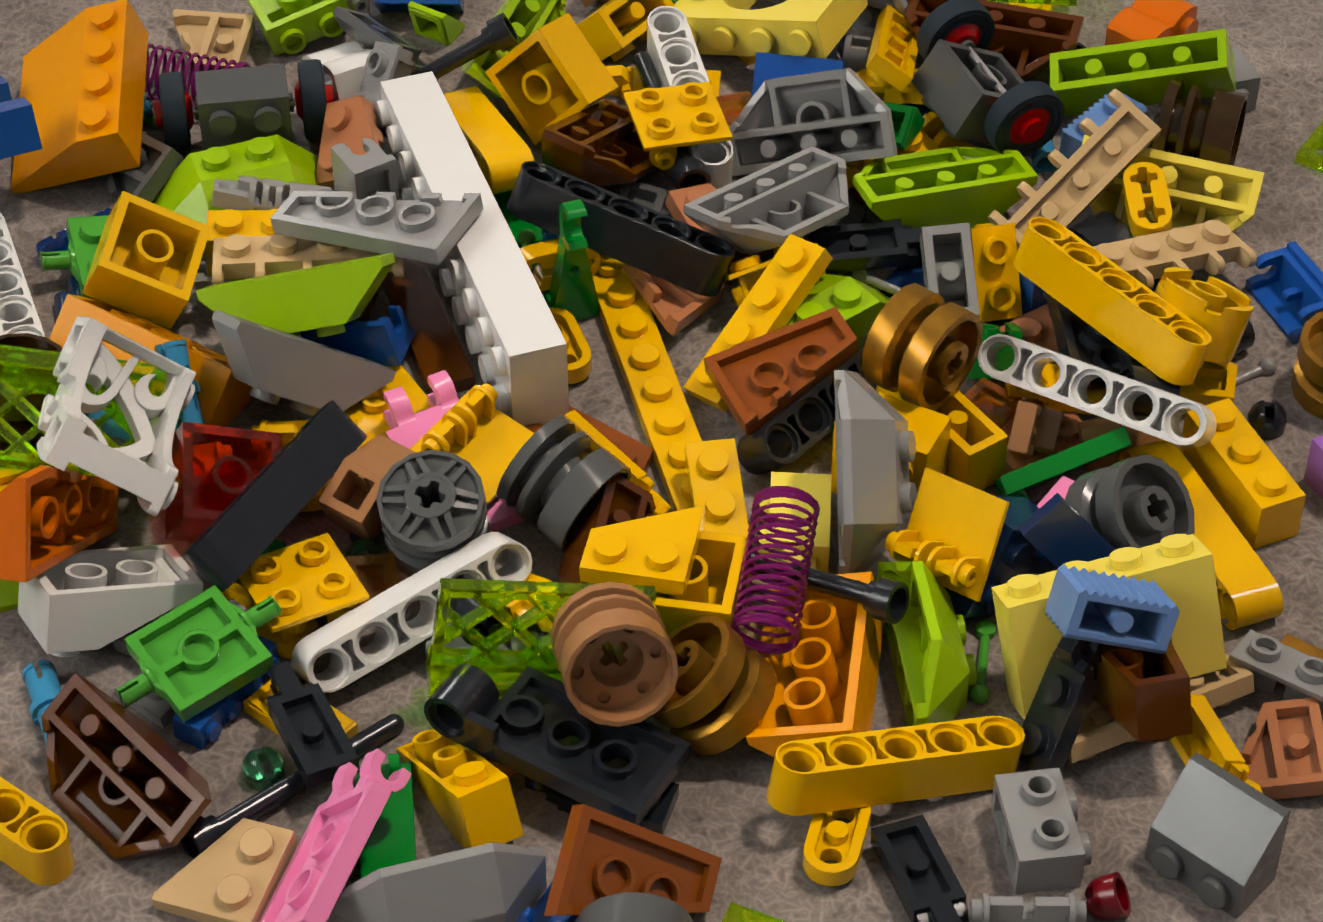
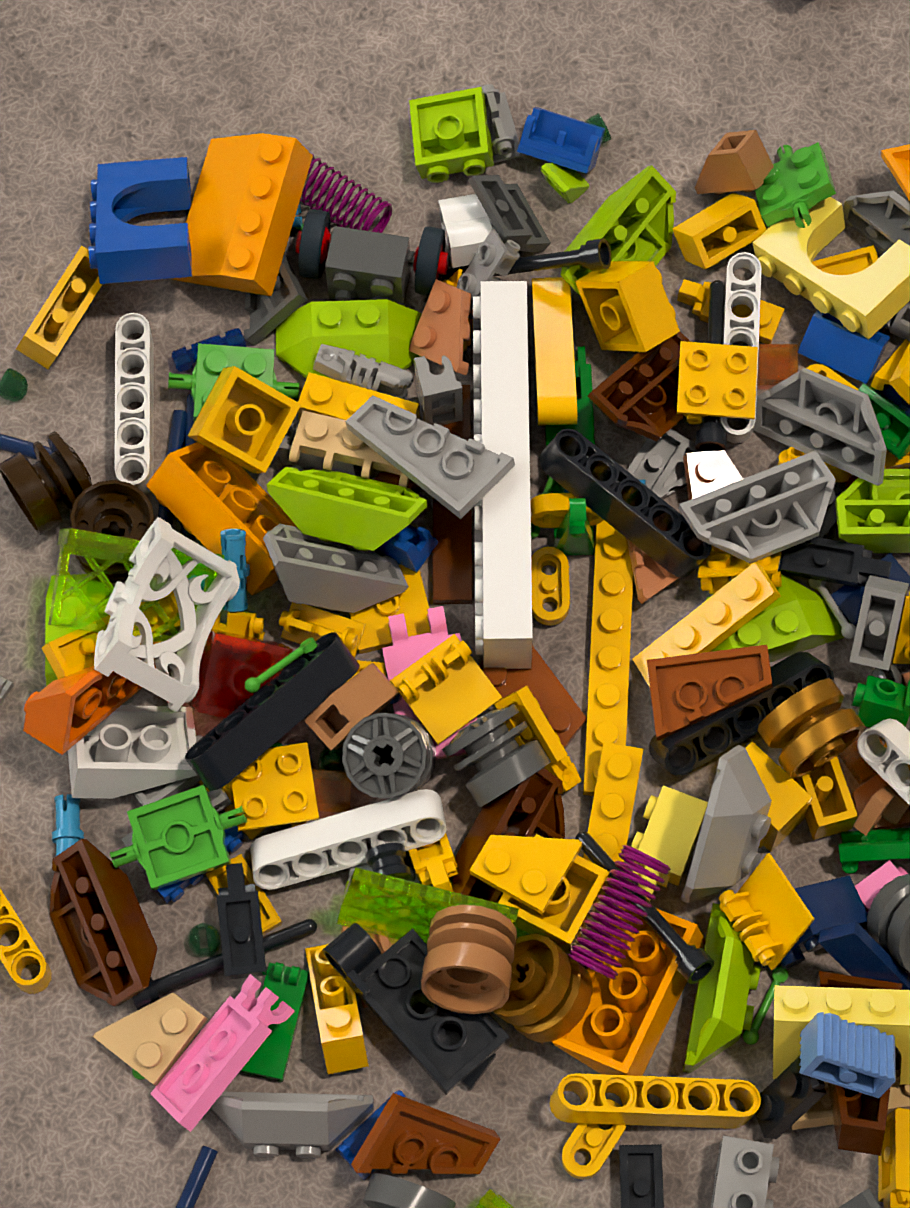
camera: 20 degrees right, 25 degrees up
(215, 34) = (375, 152): tan wing -> none
(244, 473) = (253, 684): none -> bright green hinge

